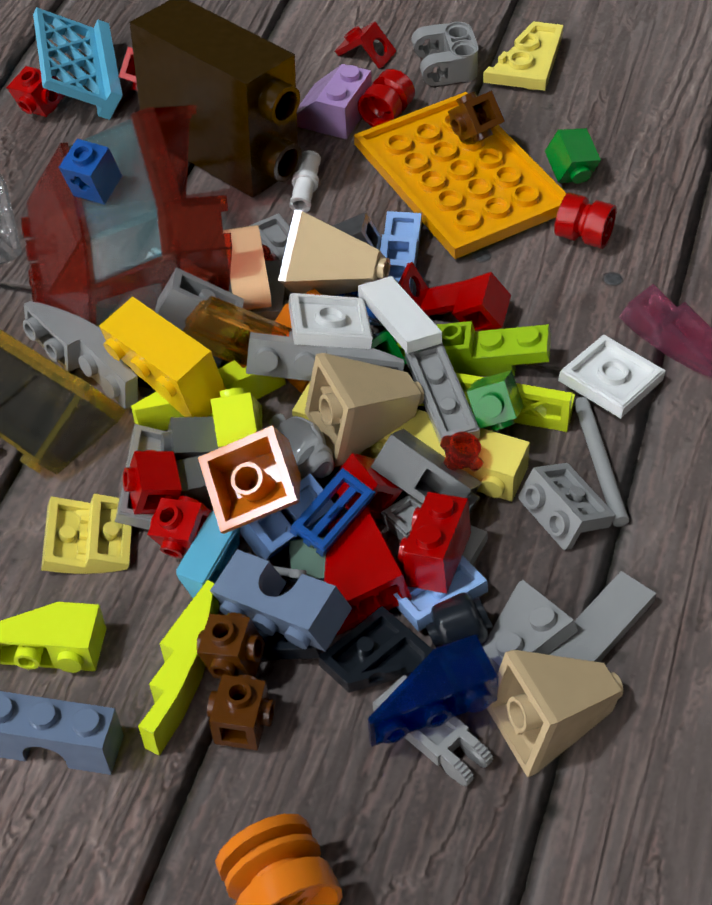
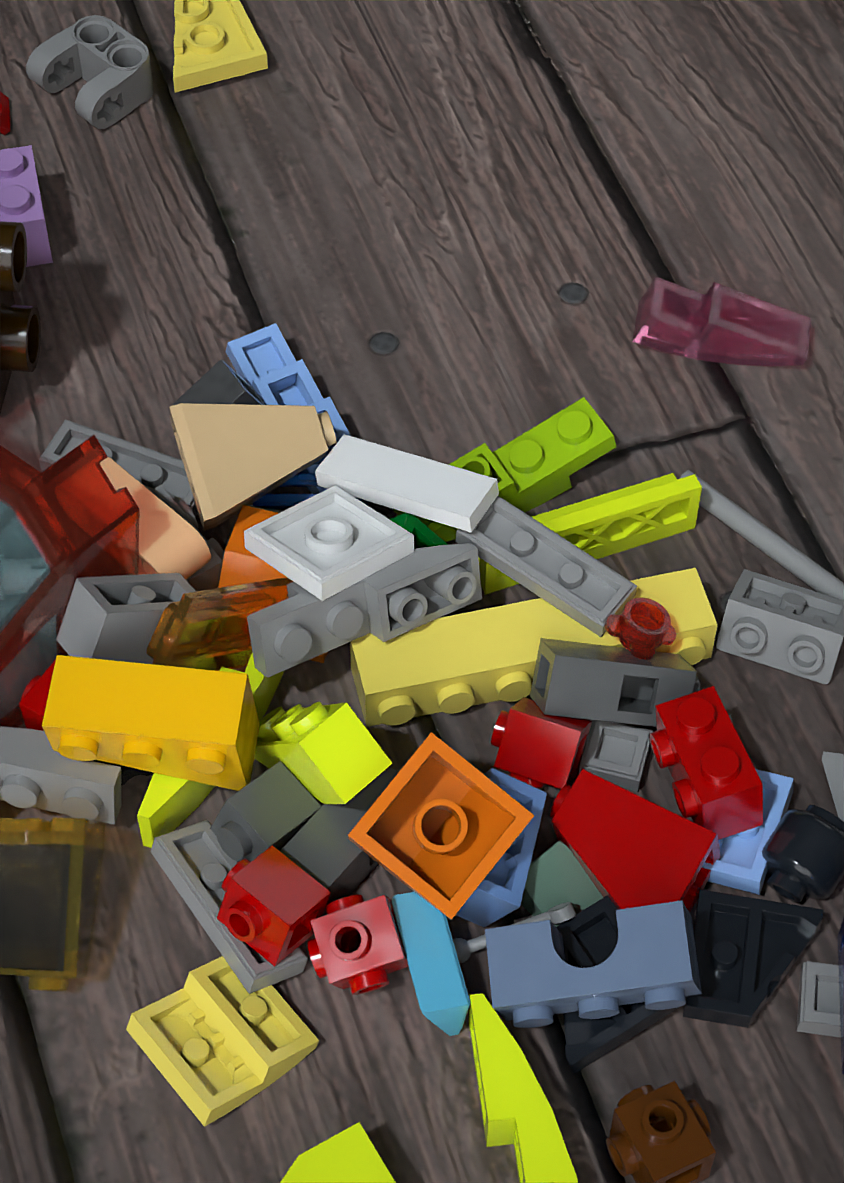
camera: 40 degrees left, 5 degrees up
(230, 645) = (589, 1087): reddish brown brick -> none
(305, 181) = (64, 357): white pin -> none
(307, 445) = (414, 718): light grey hair -> none
(312, 537) = (556, 853): blue tile -> none
(358, 403) = (461, 642): tan slope -> none
(386, 97) = (74, 177): red wheel -> none
(431, 300) = (402, 427): red bracket -> none
(465, 188) = (265, 239): light orange plate -> none
(475, 116) = (243, 148): reddish brown brick -> none
(482, 302) = (466, 410): red brick -> none
(495, 400) = (621, 533): green brick -> none
(572, 155) = (400, 147): green brick -> none
(585, 220) = (491, 229): red wheel -> none
(611, 376) = (695, 425): white plate -> none

